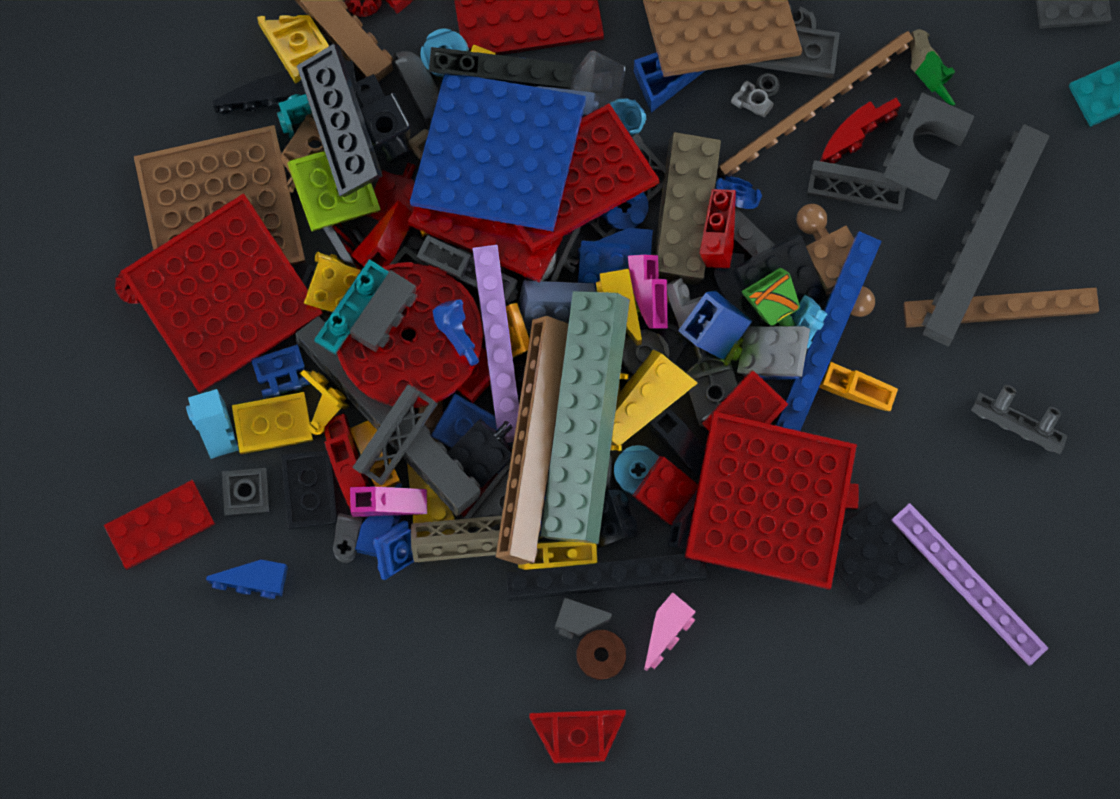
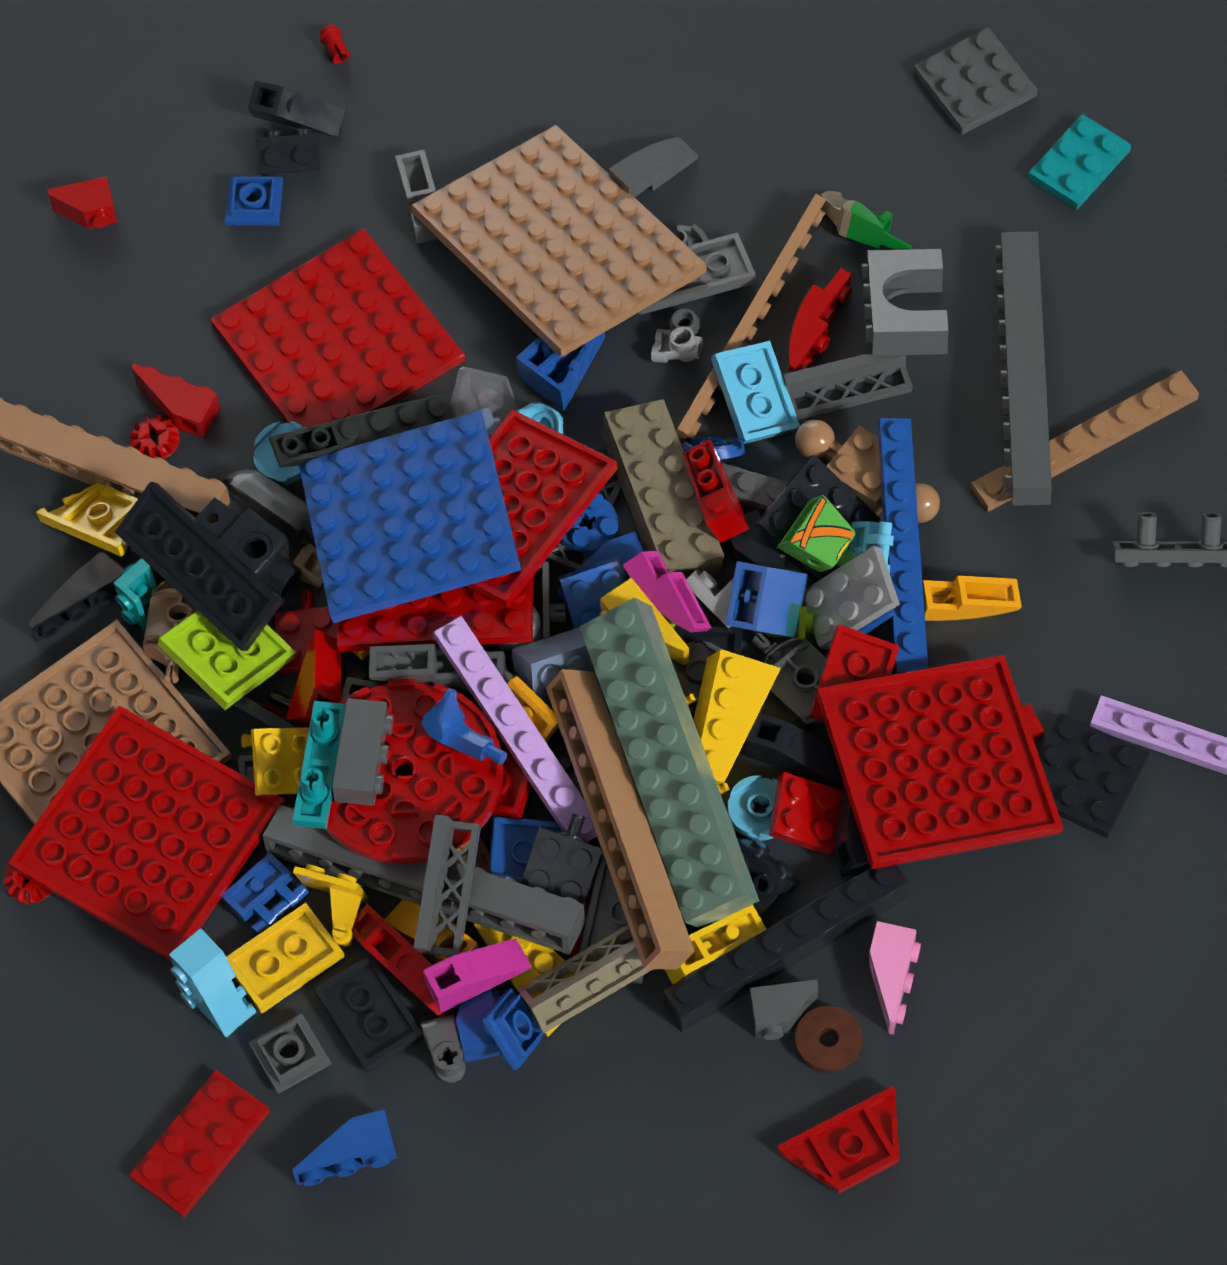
camera: 20 degrees left, 15 degrees down
(788, 164) = (755, 392): none -> medium azure plate

